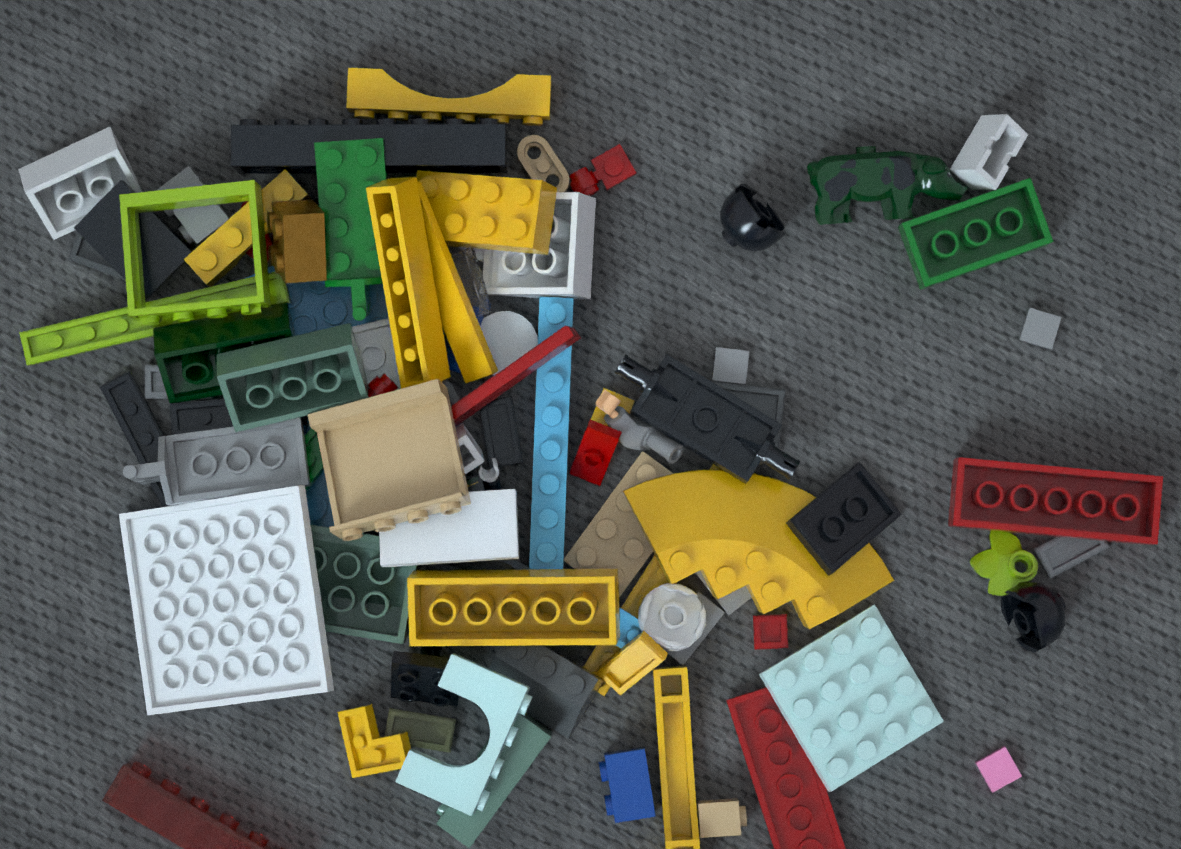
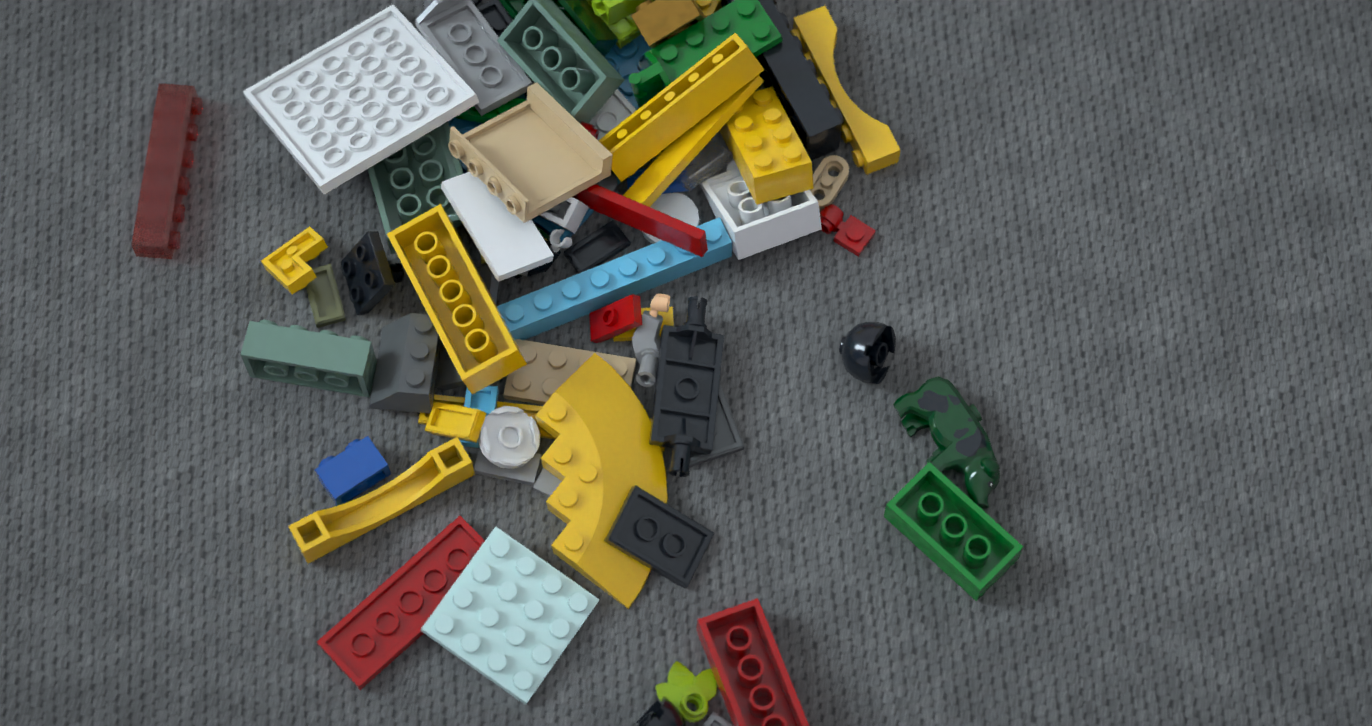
camera: 60 degrees right, 20 degrees down
(465, 785) = (370, 321): light aqua arch -> none
(721, 817) = (358, 556): tan brick -> none
(730, 365) = (741, 396): light grey tile -> none
(770, 631) = (535, 528): red tile -> none
(987, 152) = (1026, 508): white brick -> none
(1040, 328) = (903, 628): light grey tile -> none

